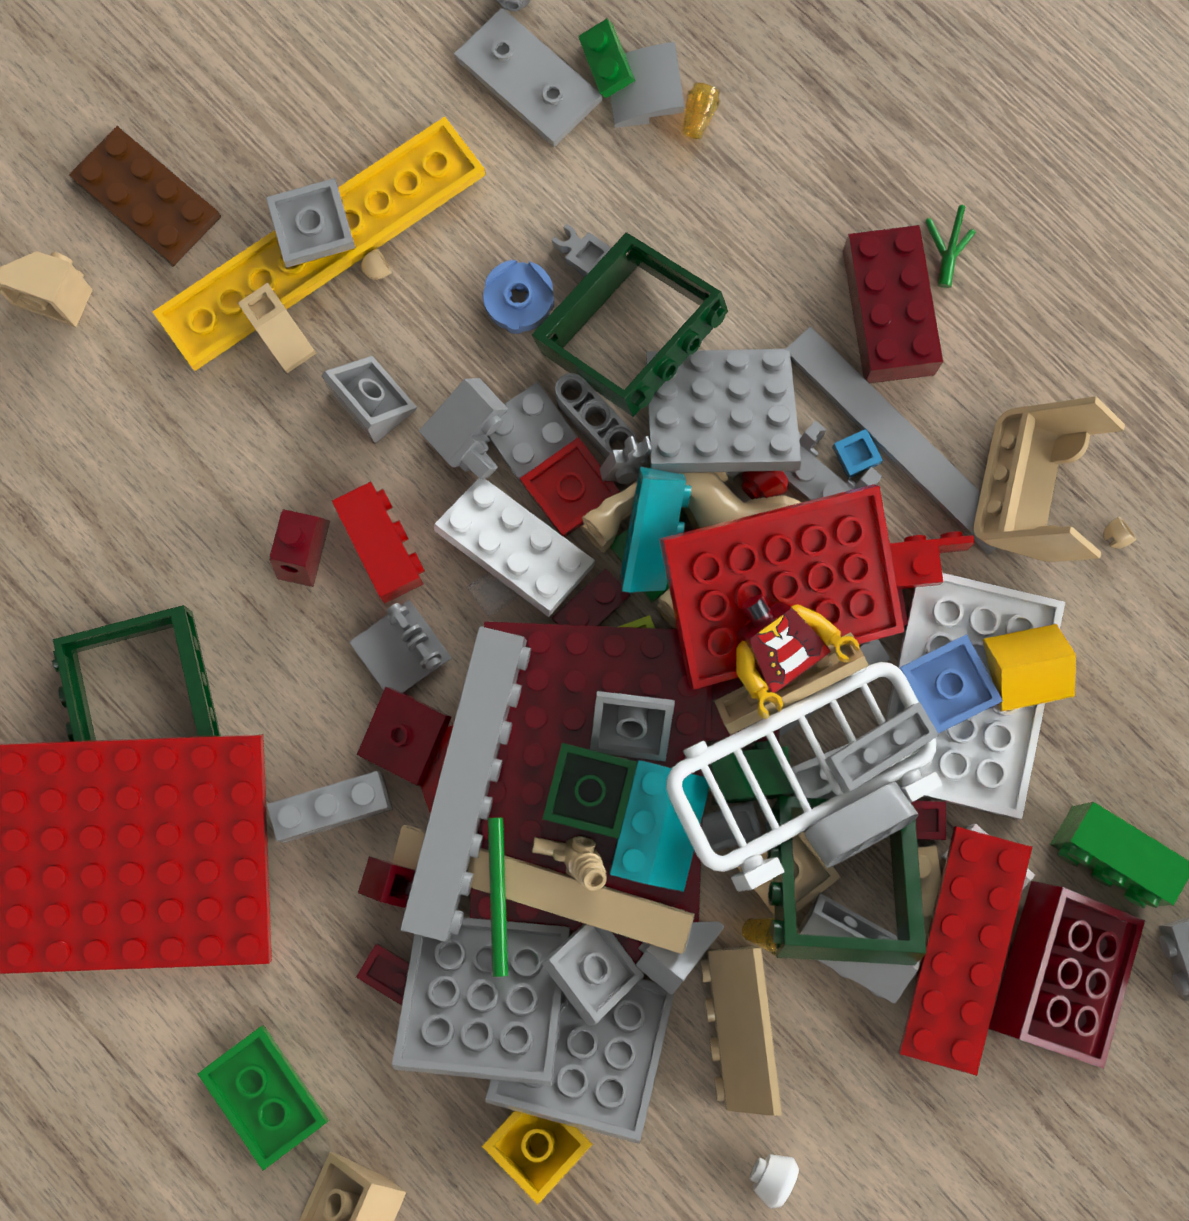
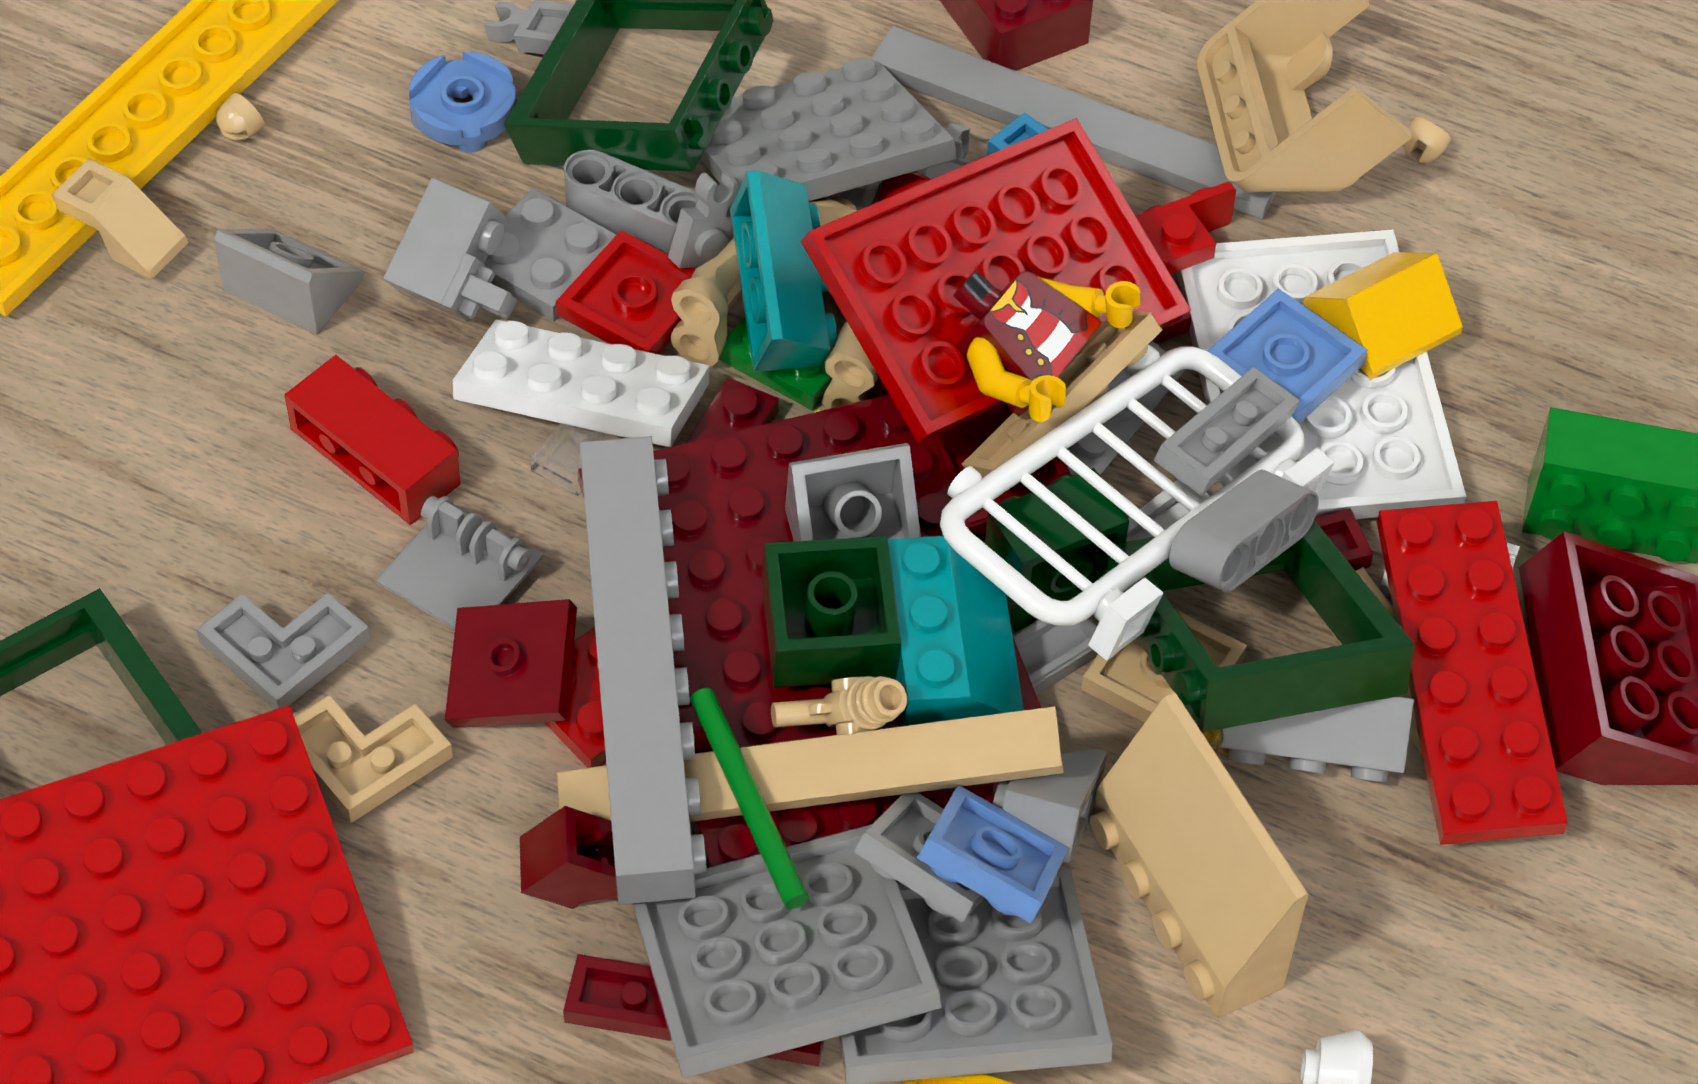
camera: 25 degrees left, 25 degrees down
(280, 681) = (285, 660): none -> light grey plate
(296, 770) = (370, 768): none -> tan plate
(299, 545) = (253, 449): dark red torso -> none
(310, 222) = (126, 80): light grey plate -> none
(329, 807) = (431, 792): light grey brick -> none
(622, 991) = (993, 854): none -> medium blue plate

